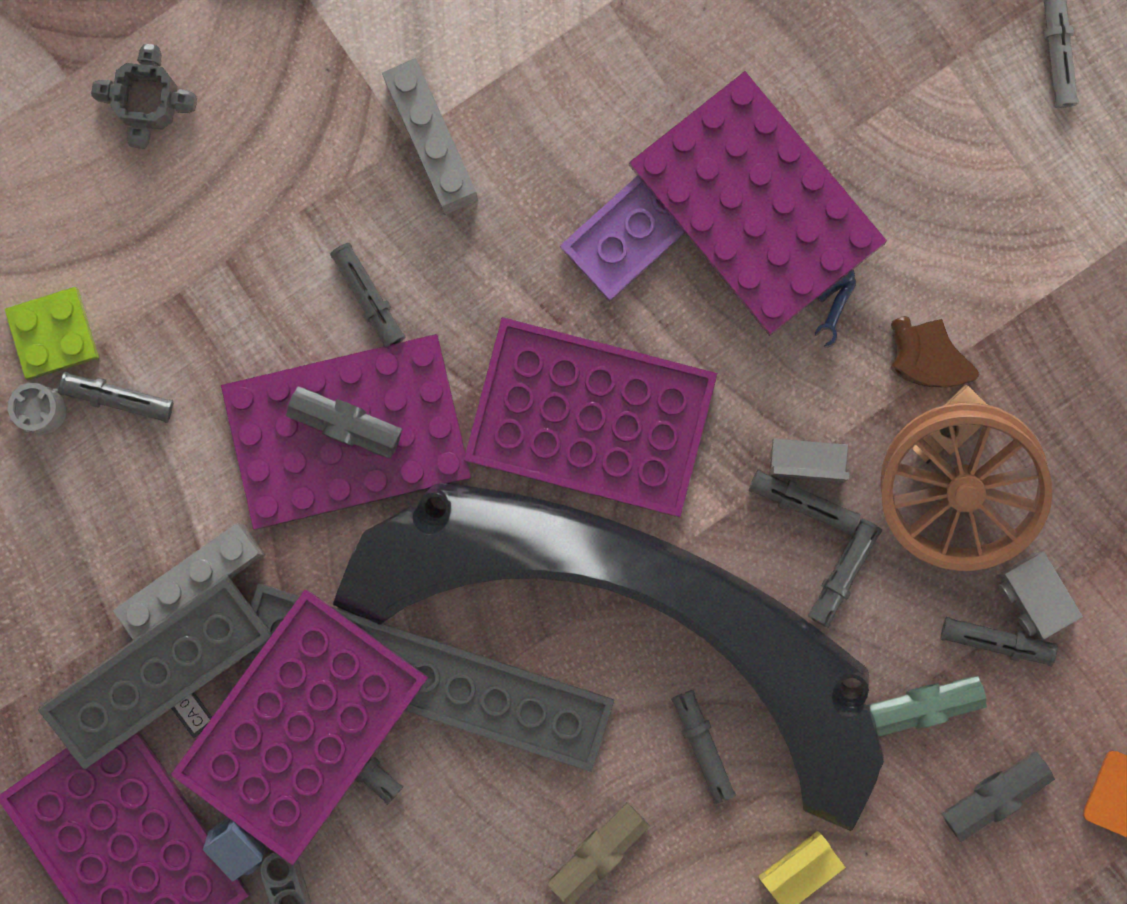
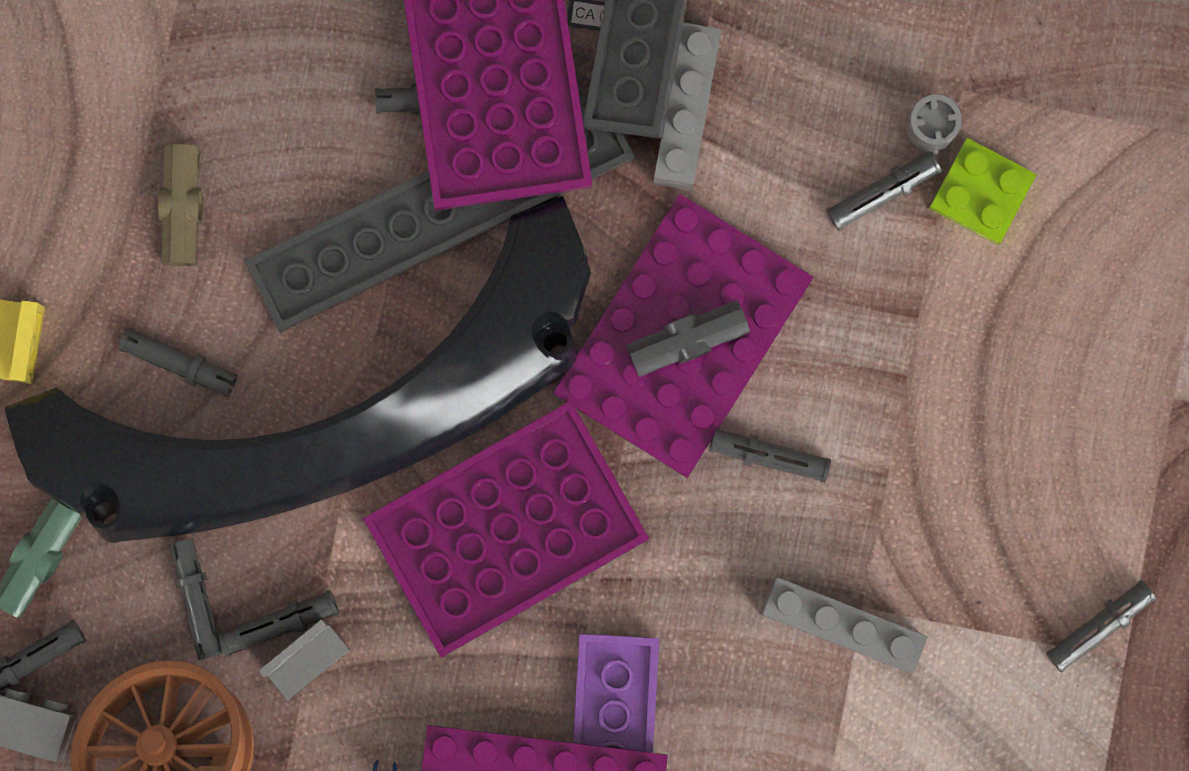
camera: 135 degrees right, 0 degrees up
(117, 95) = (1128, 415): dark grey piece -> none

